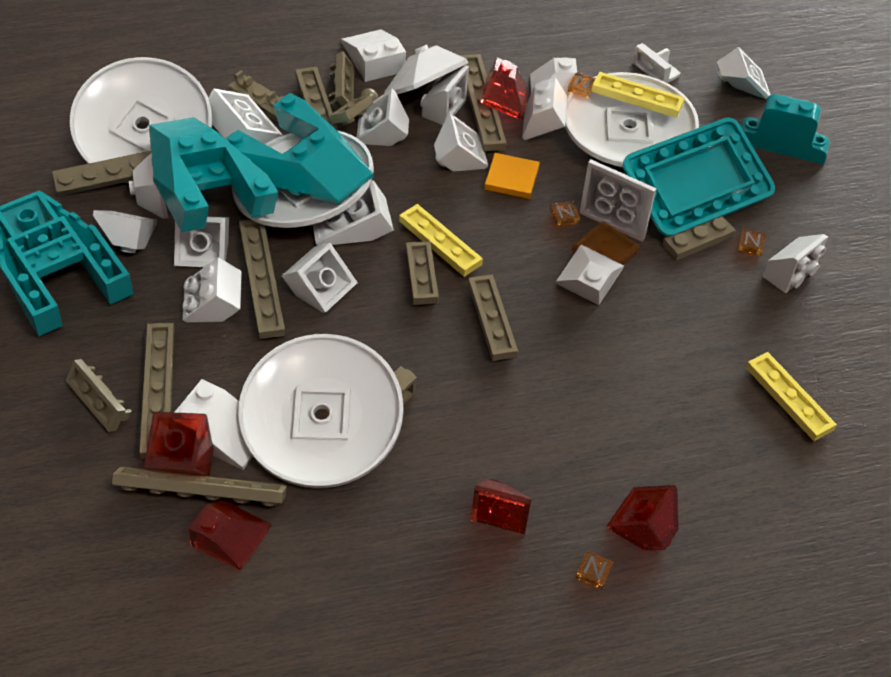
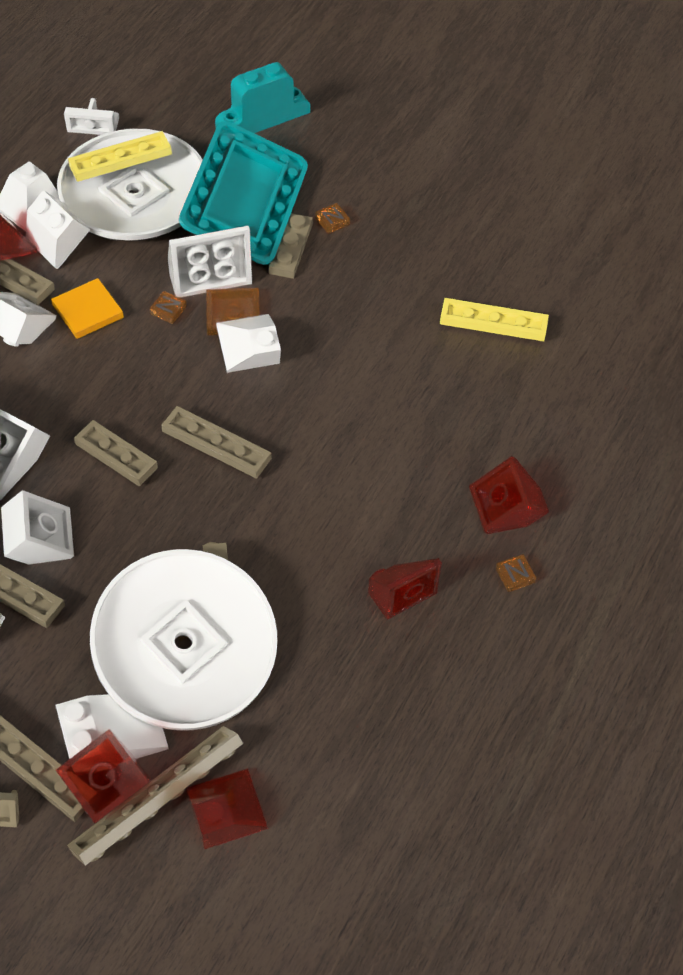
camera: 45 degrees left, 5 degrees up
(442, 240) = (105, 411): light yellow plate -> none
(581, 85) = (63, 181): clear orange tile -> none
(743, 73) = (171, 78): white slope -> none
(795, 262) = (386, 207): white slope -> none

